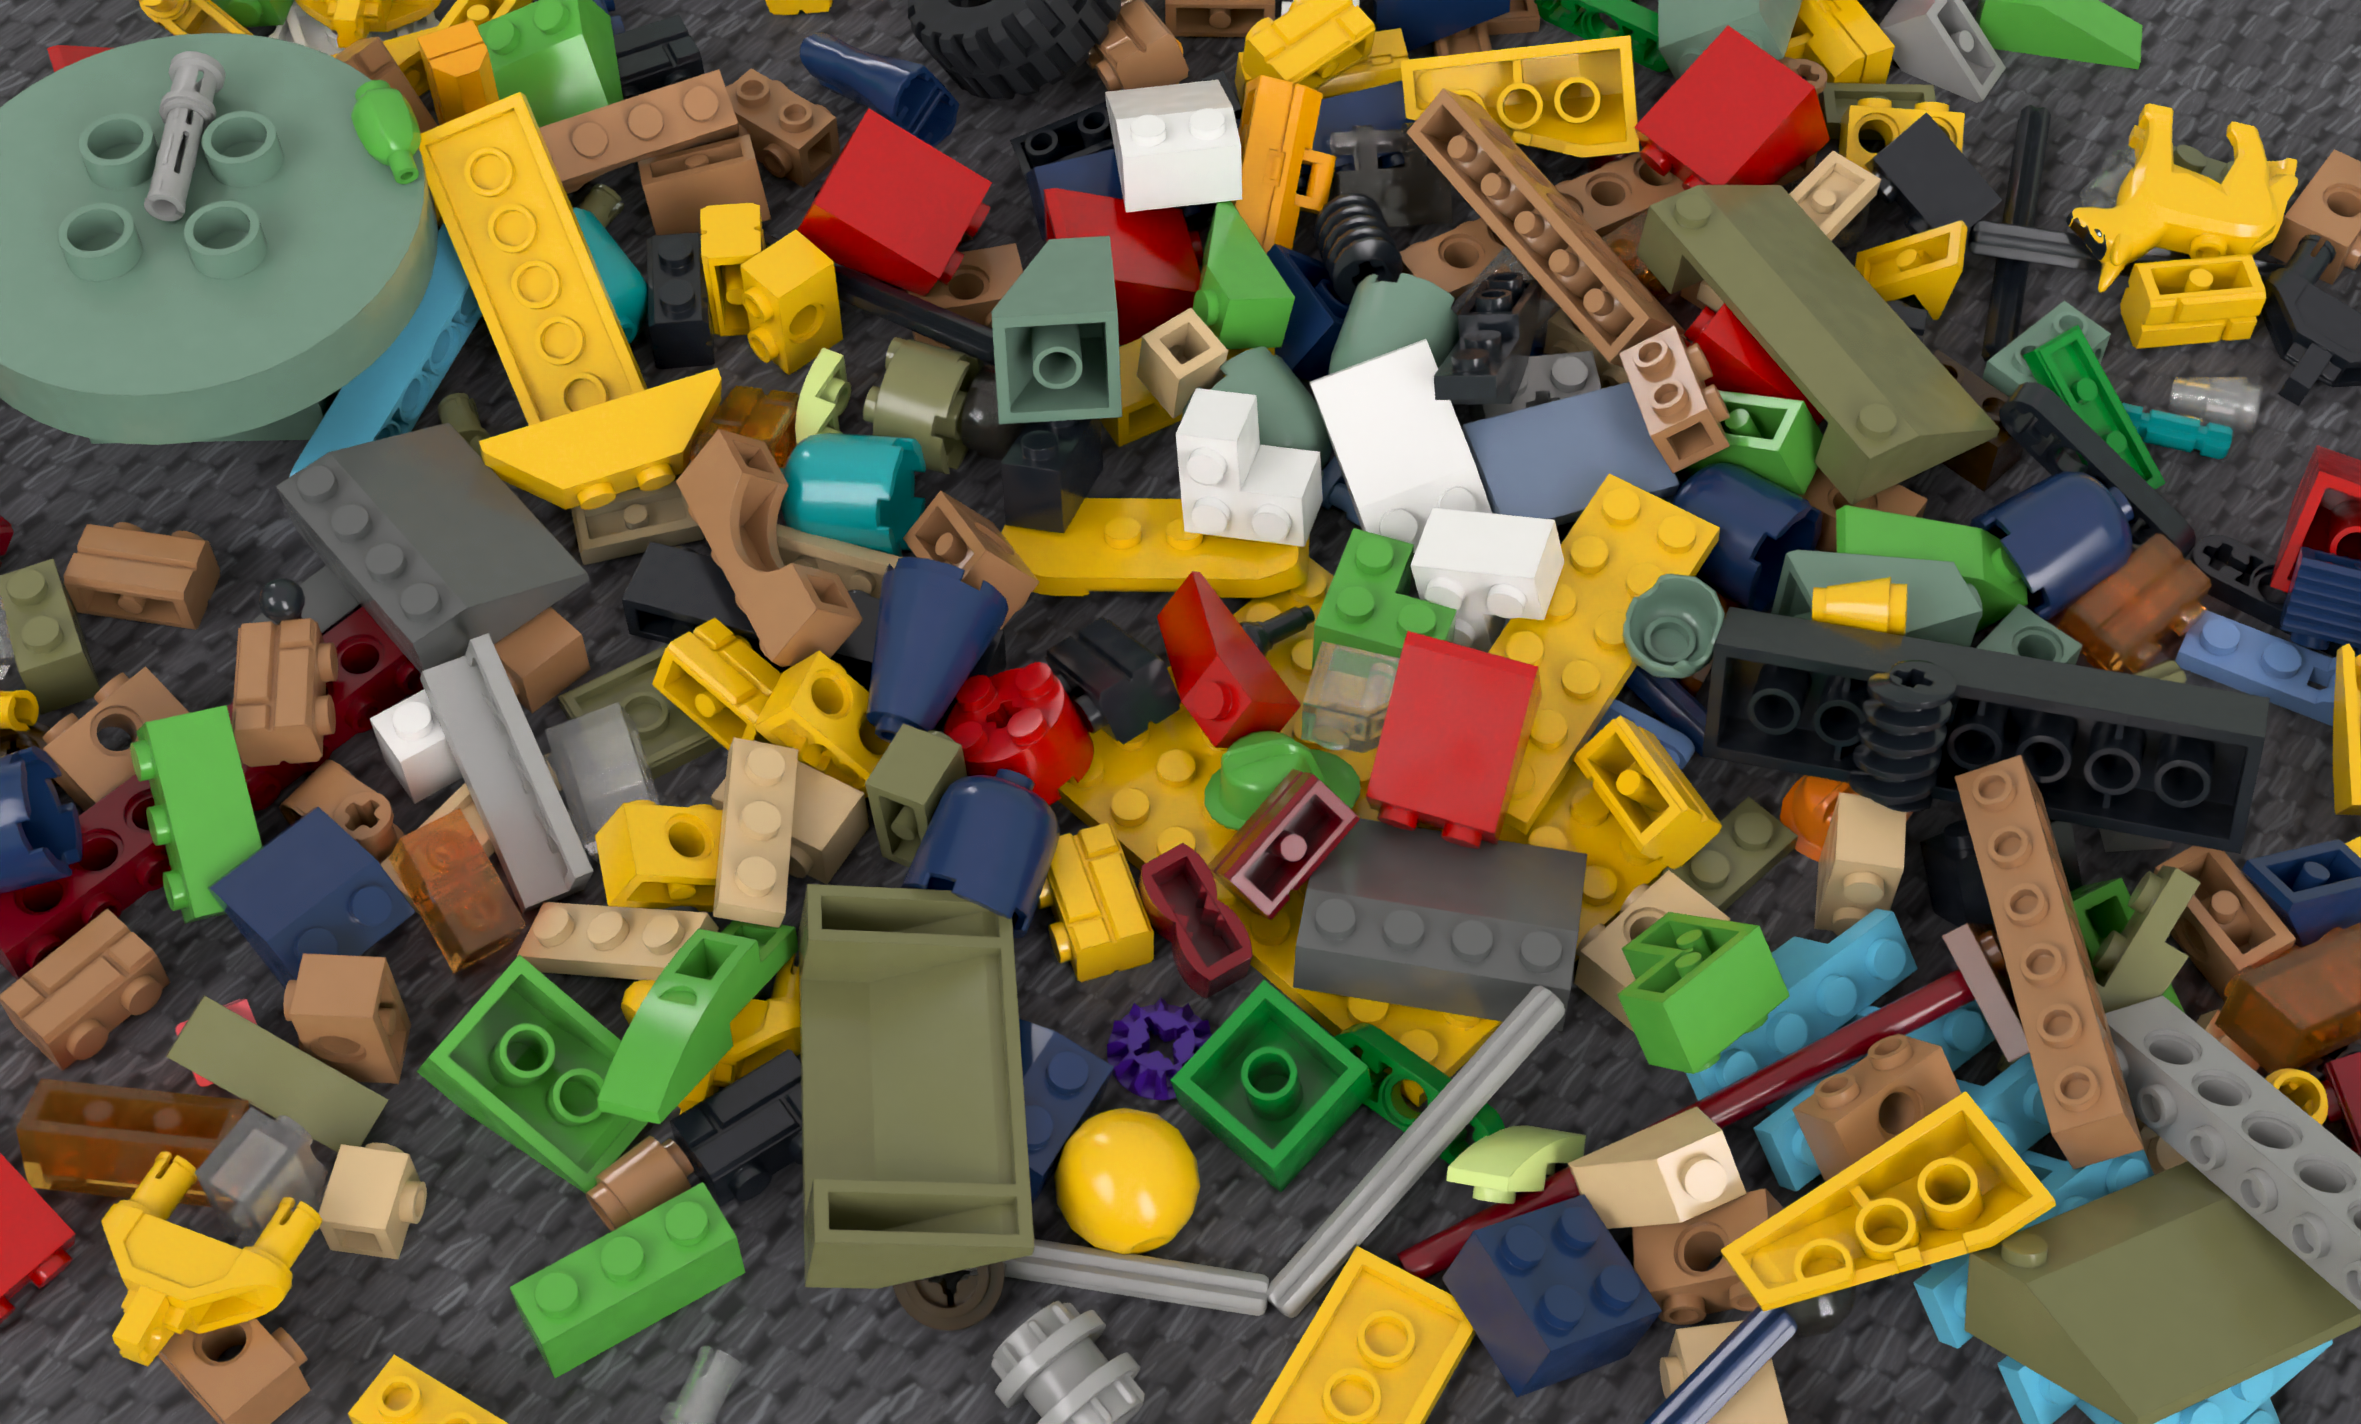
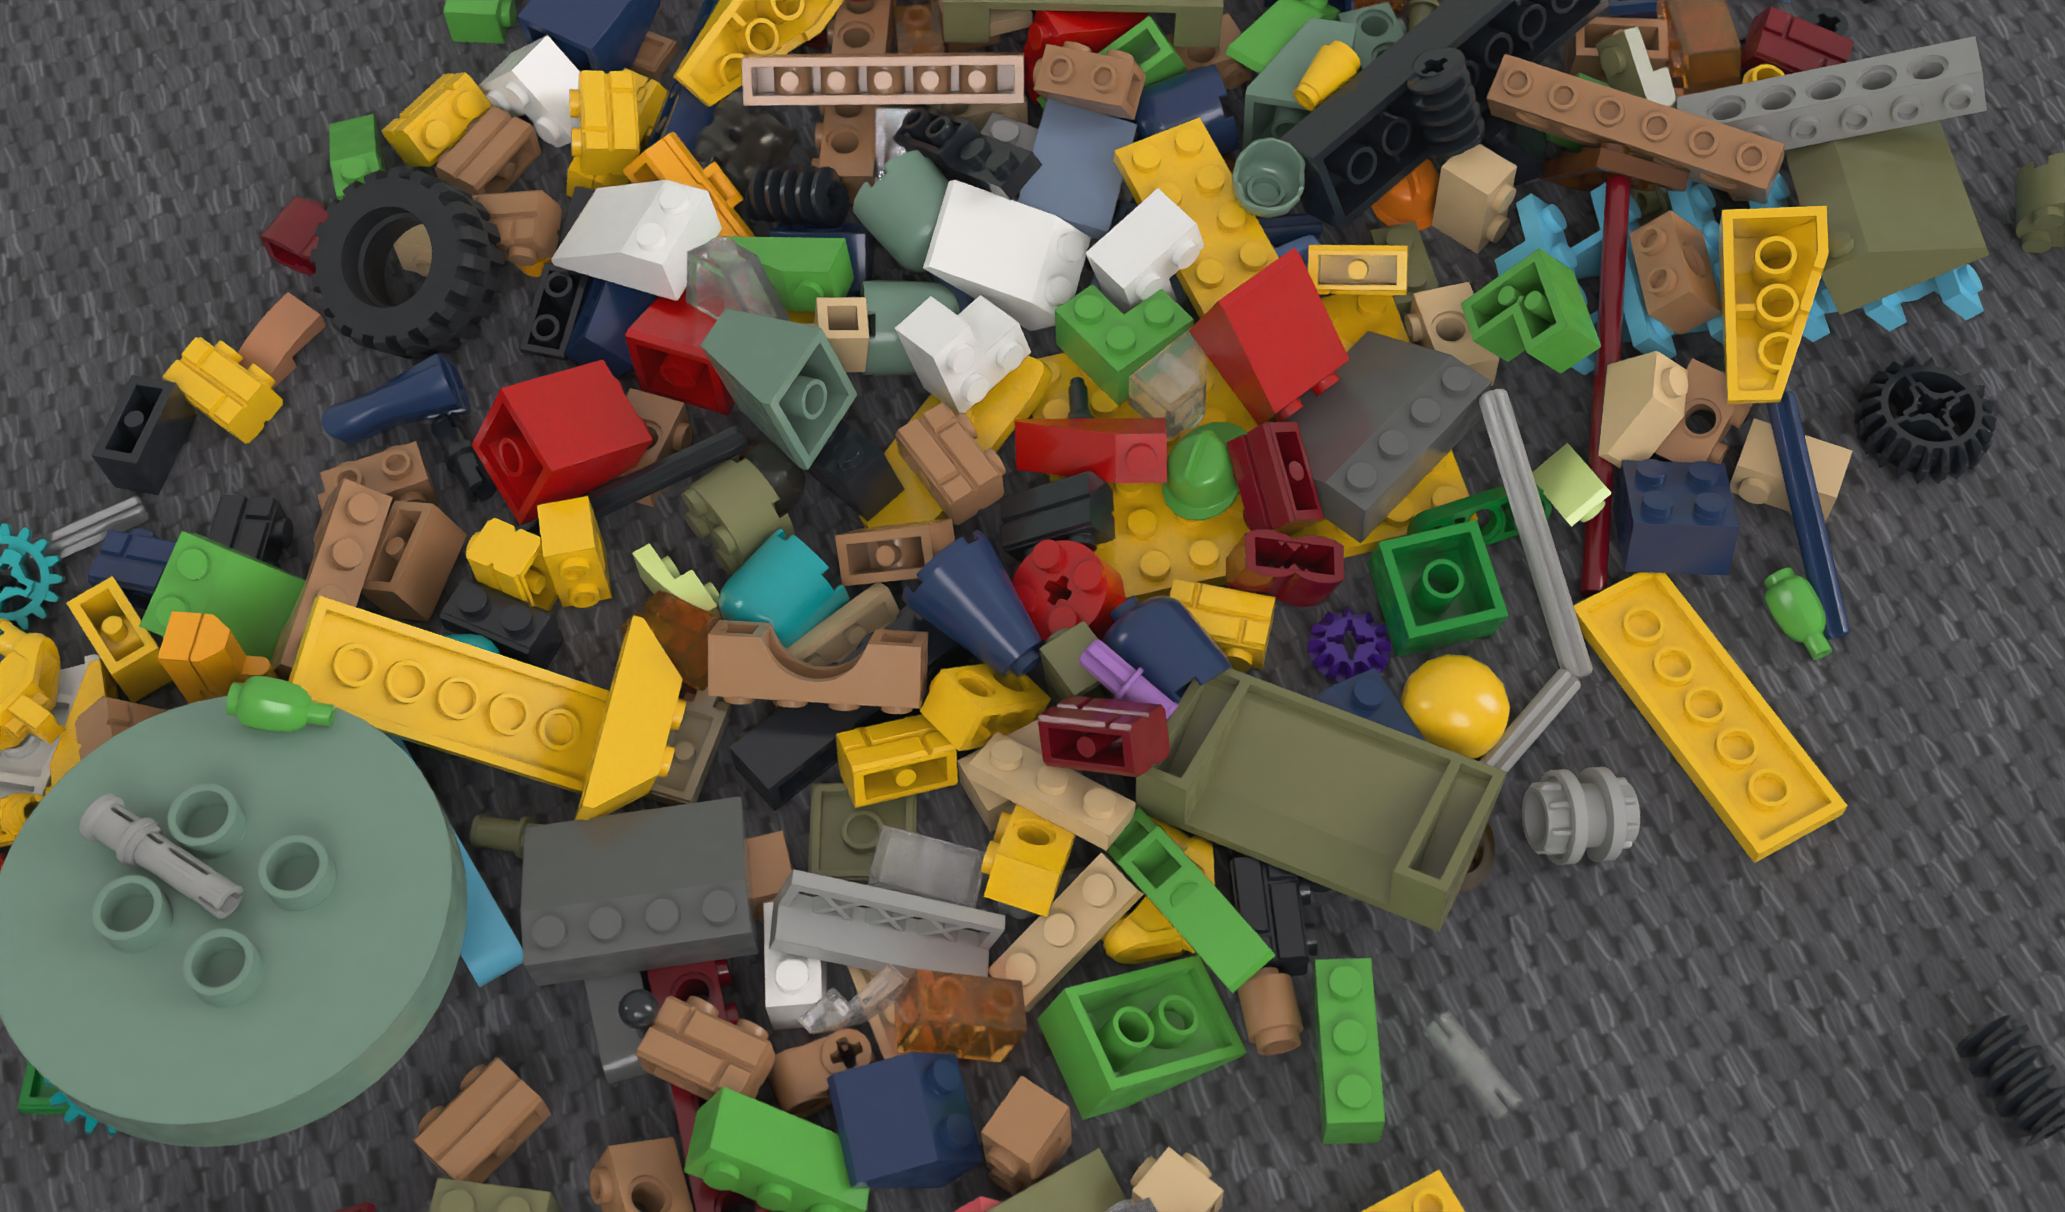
camera: 55 degrees left, 5 degrees up
(403, 784) = (836, 1013): none -> clear slope
(821, 828) = (1104, 735): none -> dark red brick
(901, 820) = (1121, 677): none -> medium lavender axle
(1102, 544) = (951, 462): none -> medium nougat brick
(1171, 248) = (731, 278): none -> clear slope

